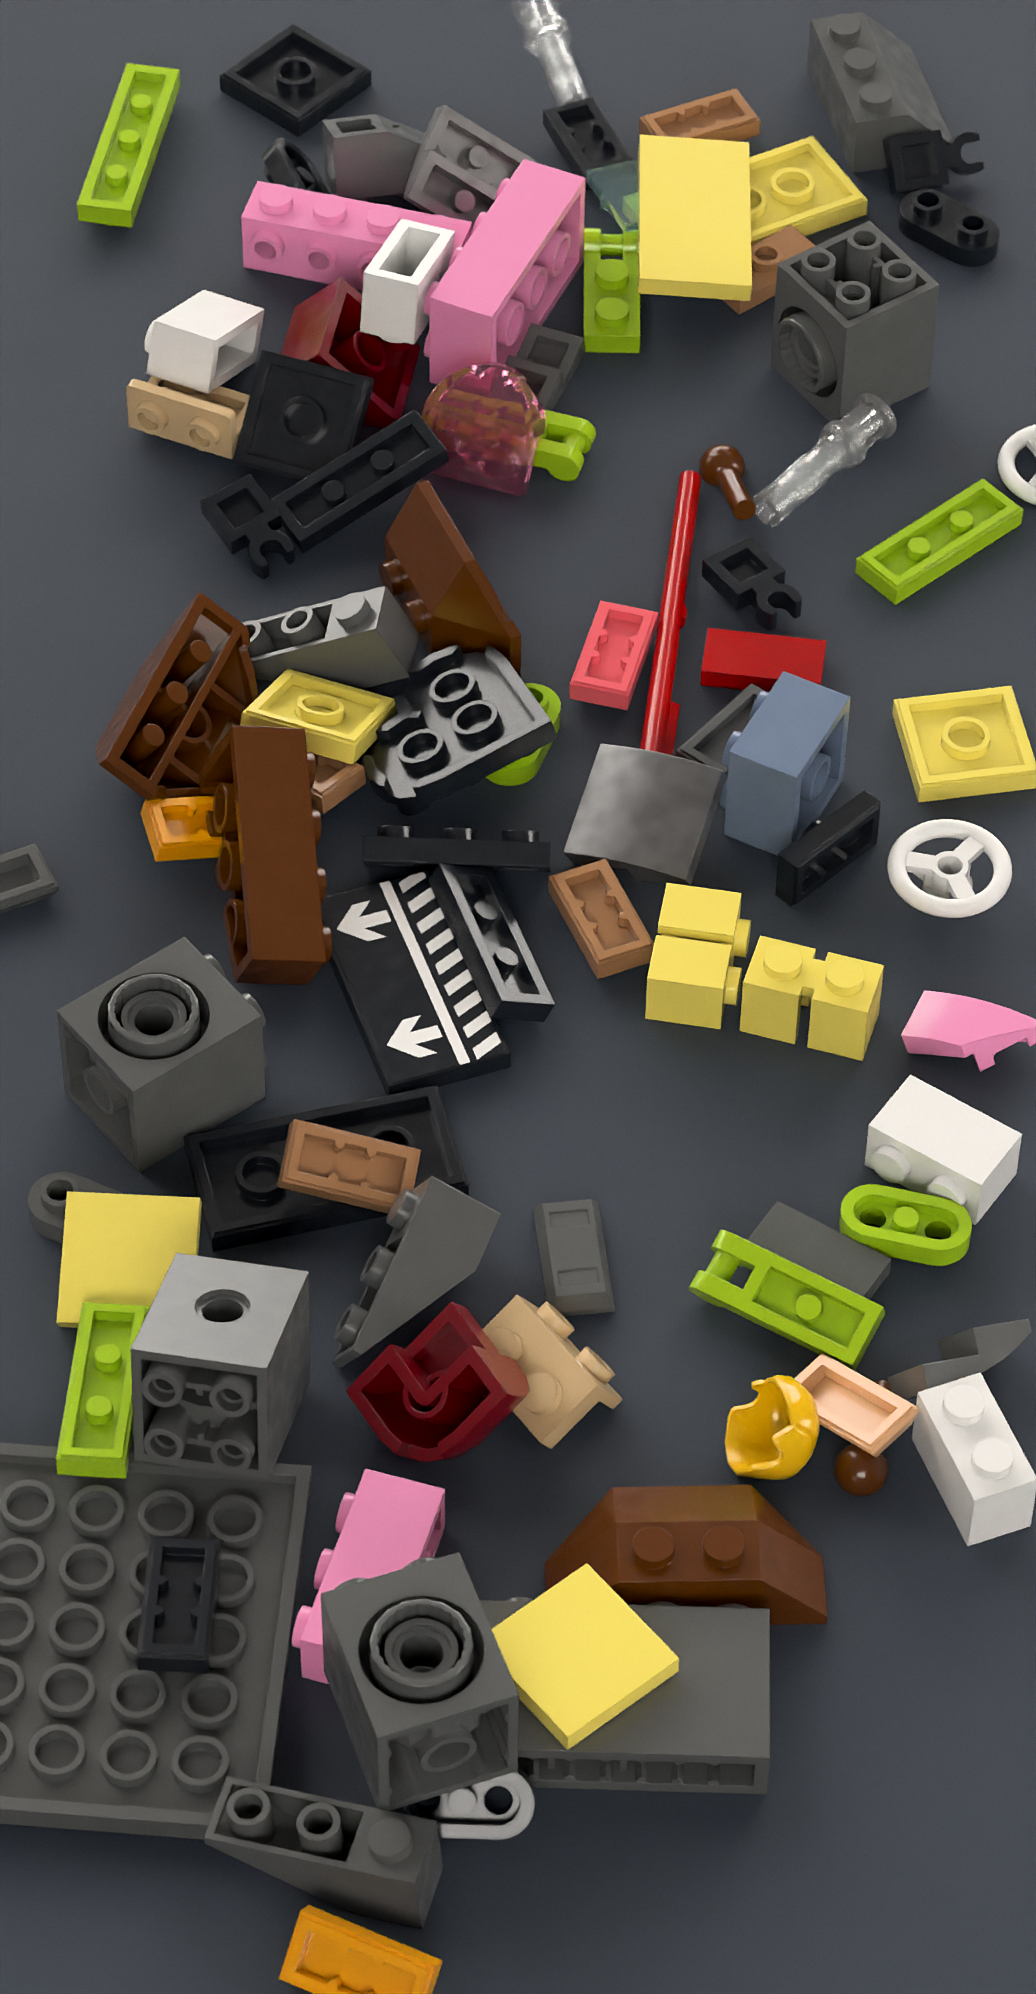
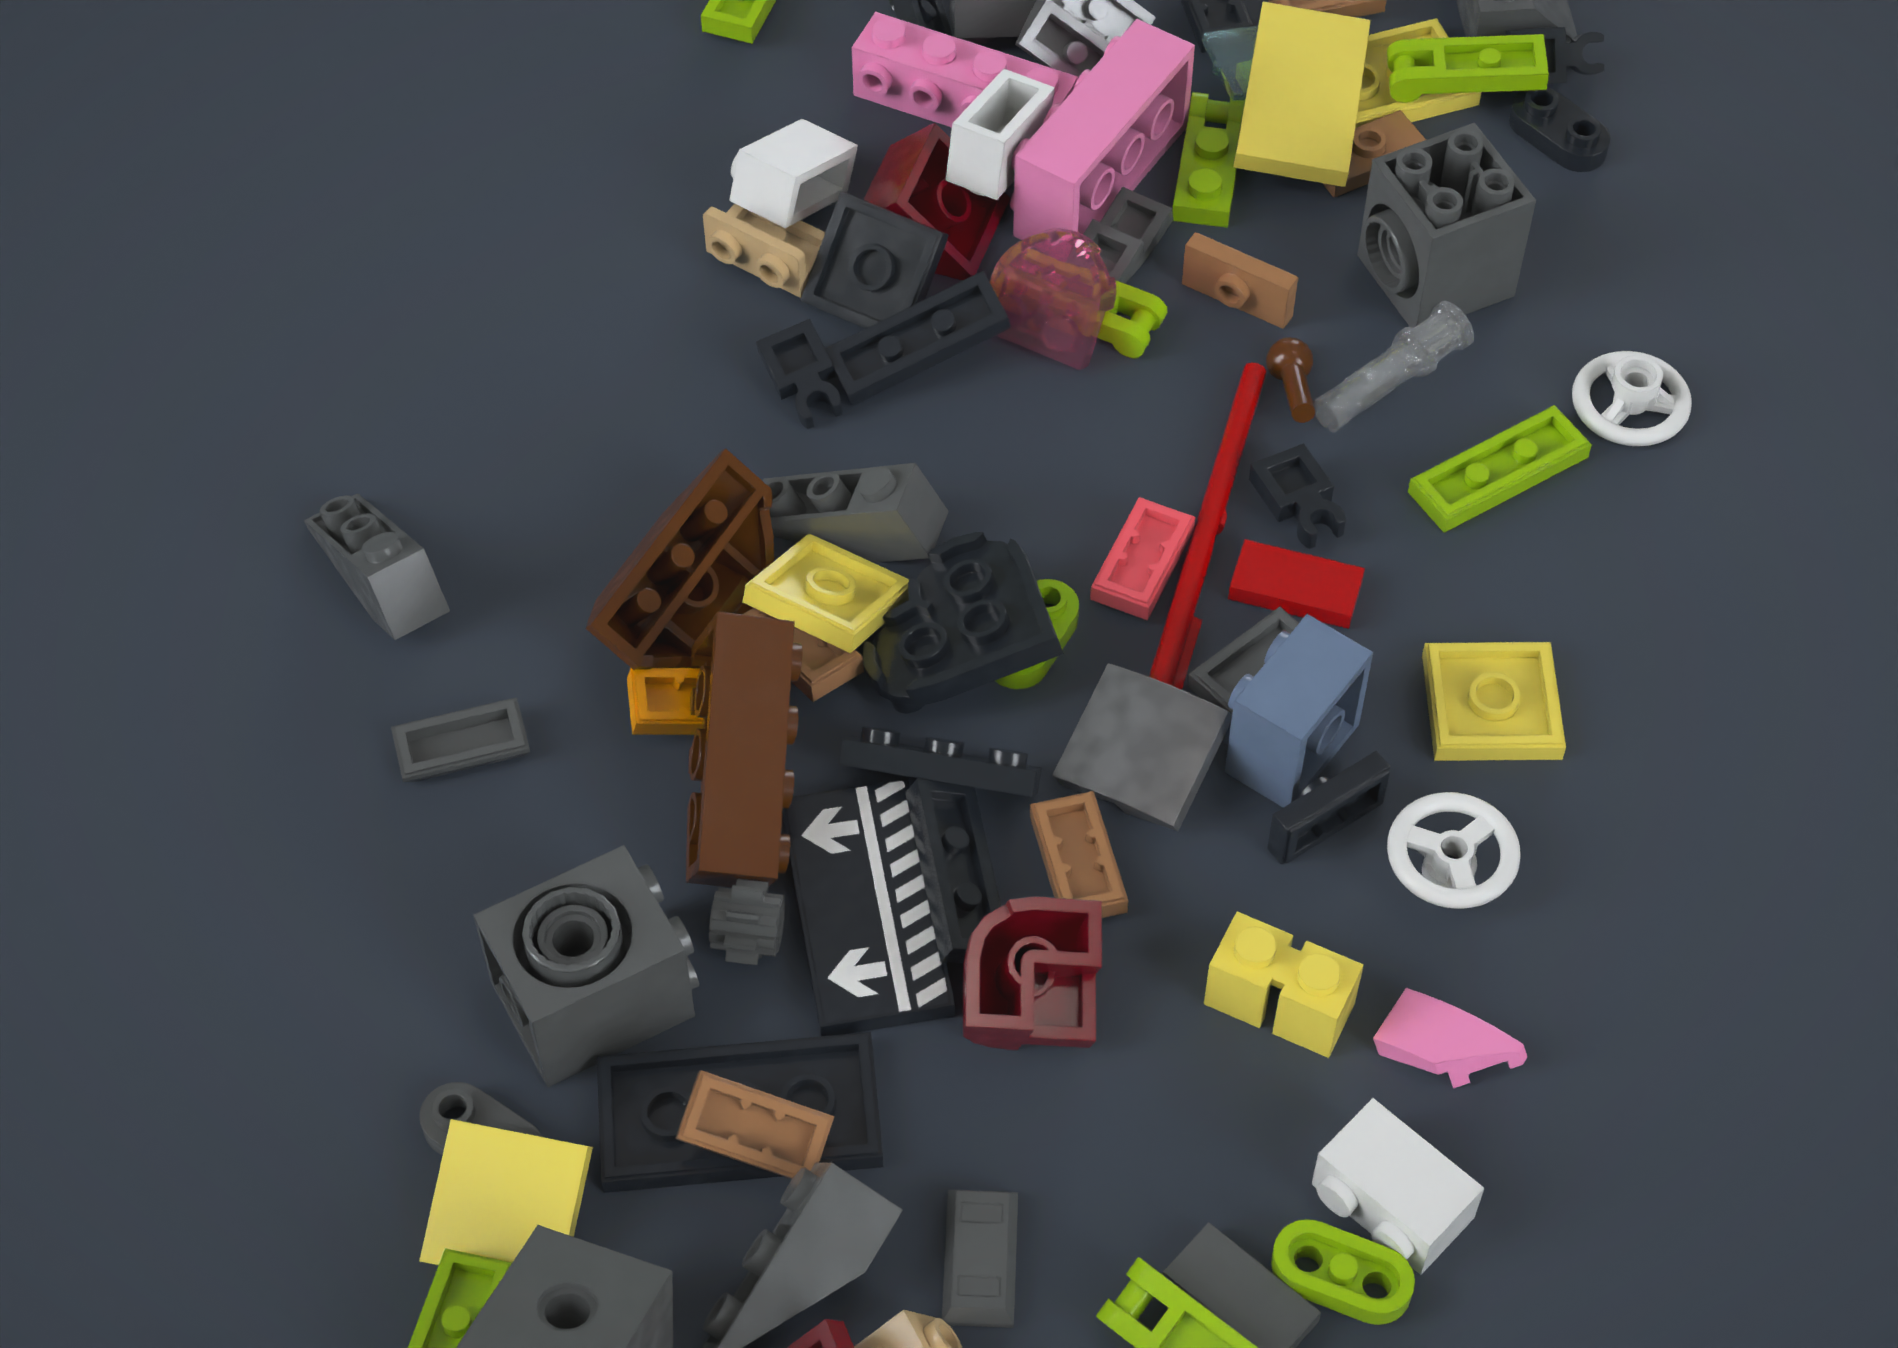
camera: 10 degrees right, 5 degrees up
(302, 1005) = (747, 921): none -> dark grey gear
(443, 583) = (981, 461): reddish brown wedge -> none
(582, 1013) = (1034, 974): none -> dark red brick
(661, 397) = (1239, 280): none -> medium nougat plate
(694, 956) = (1166, 921): light yellow piece -> none
(850, 175) = (1466, 65): none -> lime plate

